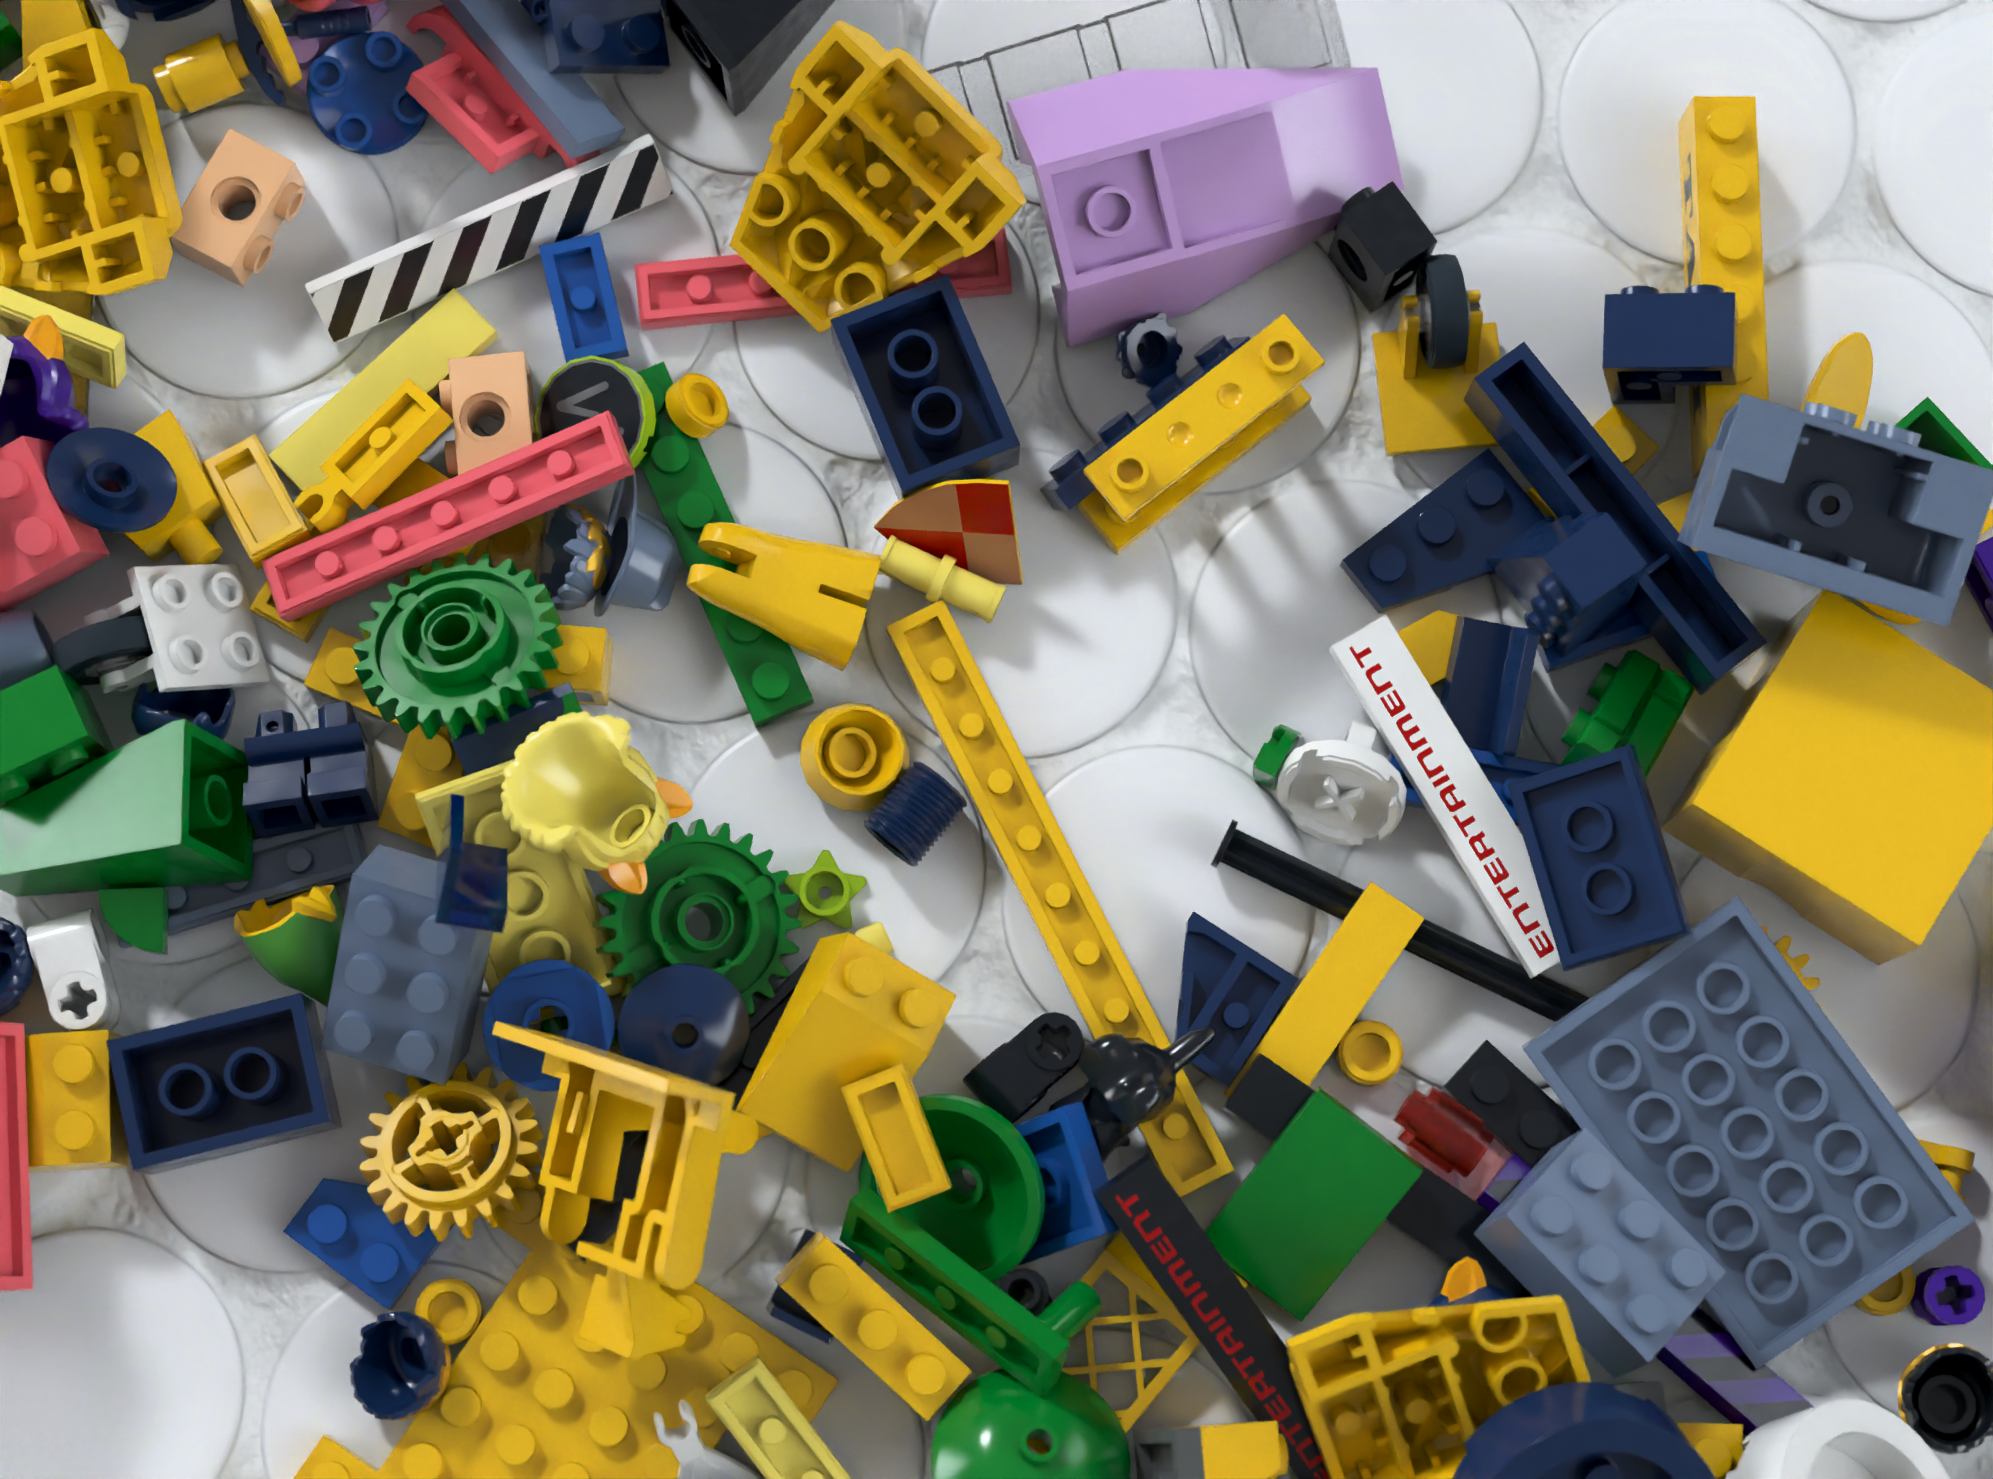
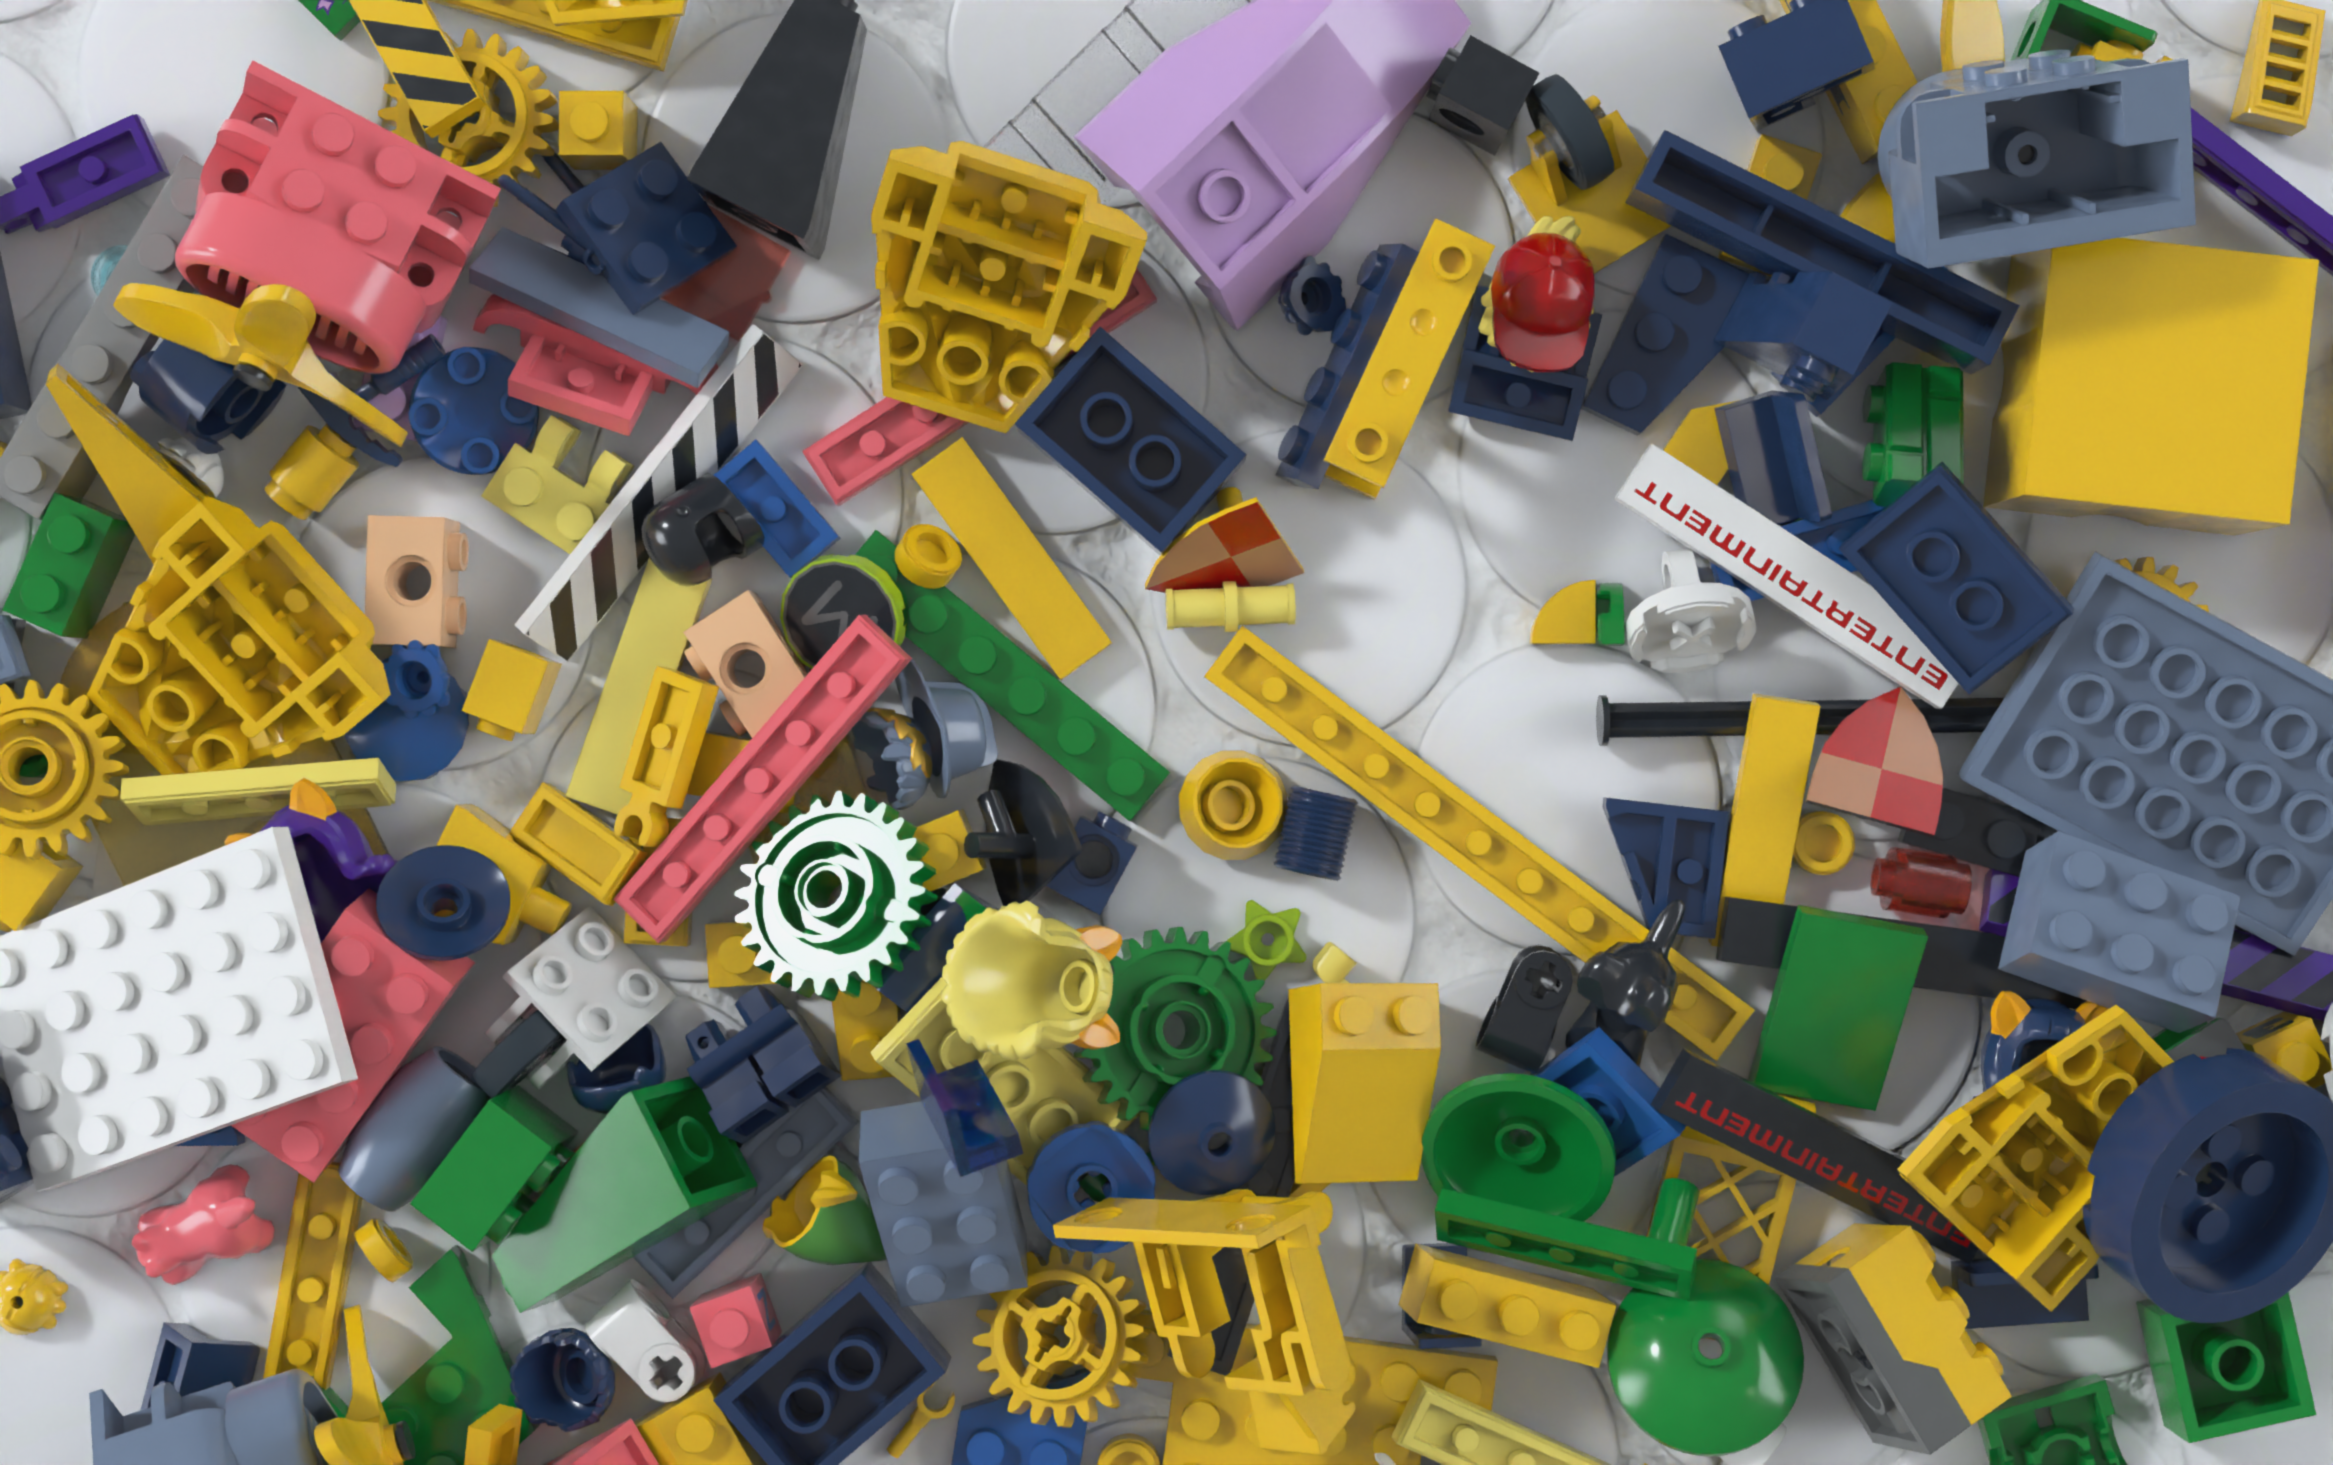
camera: 25 degrees left, 10 degrees up
(138, 916) = (676, 1269): green tile -> none
(165, 988) = (736, 1320): none -> coral brick
(170, 325) = (412, 746): none -> blue dish
(185, 284) = (407, 680): none -> blue animal
(271, 339) = (510, 690): none -> yellow brick
(283, 1168) = (918, 1419): none -> yellow hand
(388, 192) = (547, 498): none -> light yellow plate
(496, 282) = (690, 538): none -> black helmet
(653, 100) = (736, 285): none -> clear red piece
(656, 678) = (1025, 834): none -> black shield
(697, 769) = (1096, 891): none -> dark blue brick
(767, 430) = (1011, 558): none -> yellow tile
(789, 587) = (1103, 687): yellow piece -> none
(896, 1137) = (1451, 1139): yellow tile -> none
(1019, 1279) = (1610, 1211): black pin -> none
(1237, 737) = (1567, 616): none -> yellow tile
(1308, 498) = (1514, 396): none -> dark blue slope
(1349, 443) = (1541, 299): none -> red hair
(1454, 1001) = (1882, 766): none -> shield

